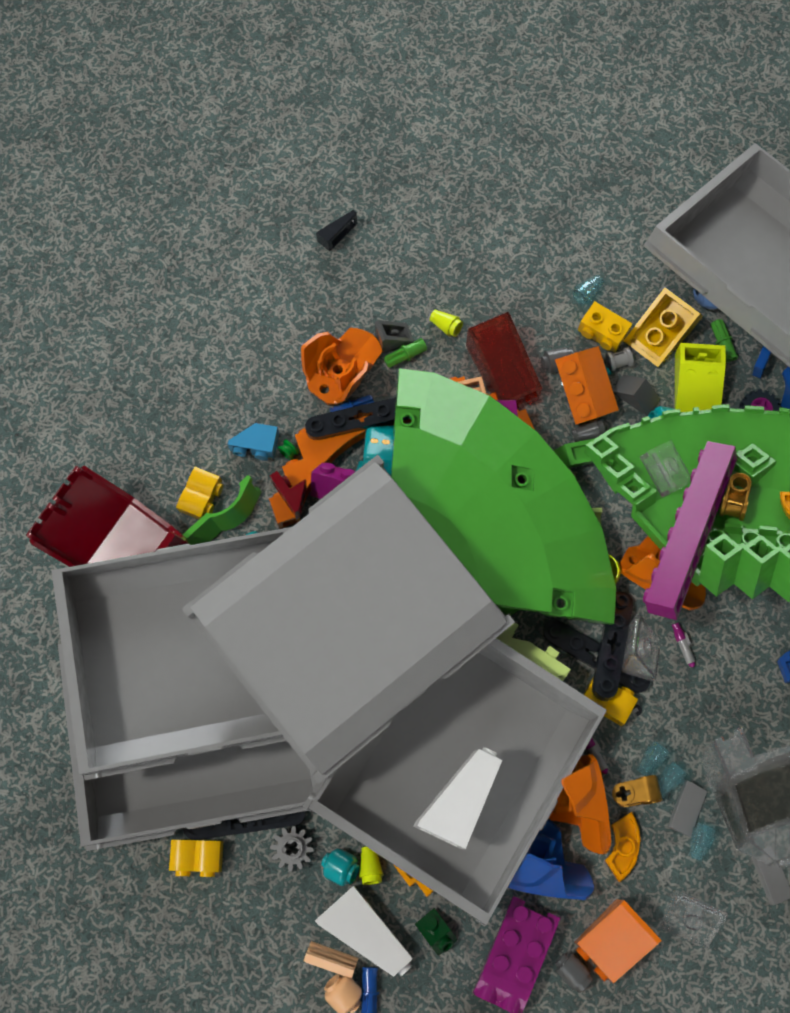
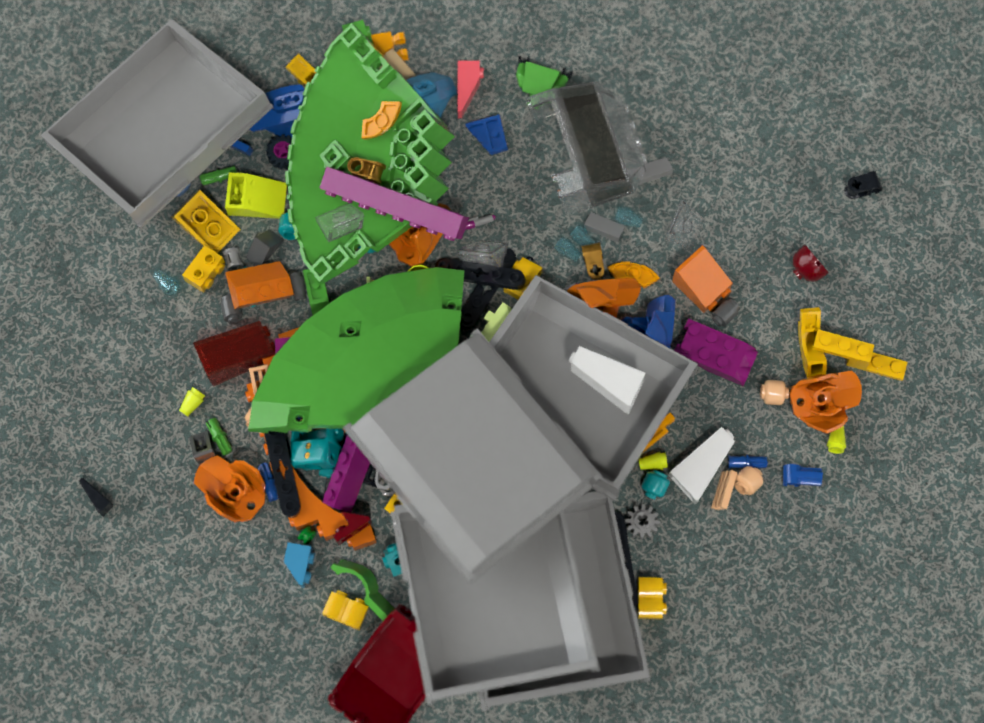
camera: 90 degrees left, 0 degrees up
(436, 932) = (700, 412): dark green bracket -> none

